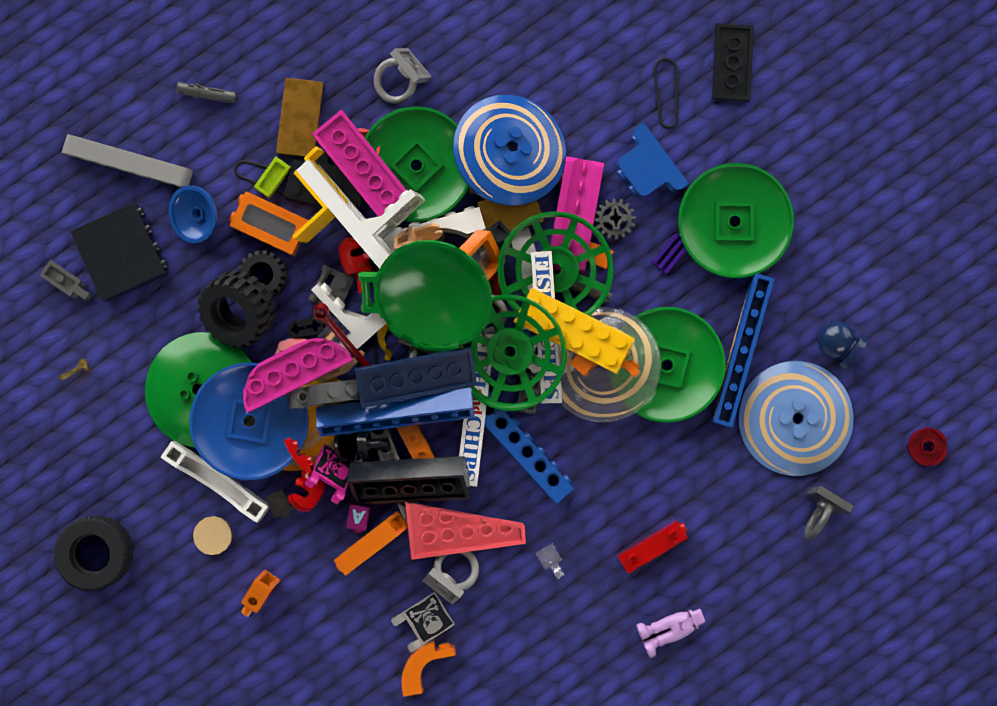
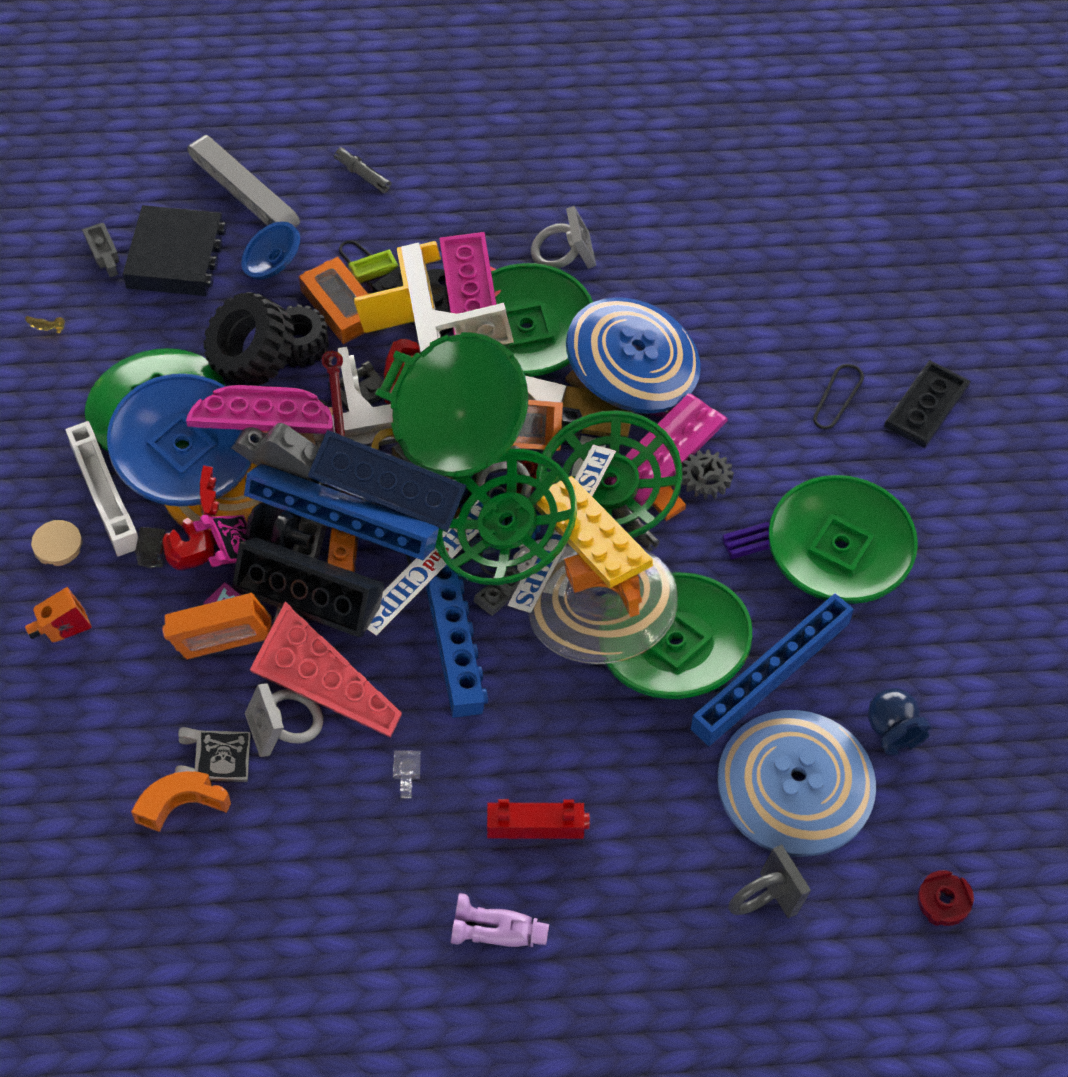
camera: 30 degrees right, 30 degrees down
(299, 116) = (445, 220): pearl gold tile -> none
(648, 166) = (774, 445): blue brick -> none

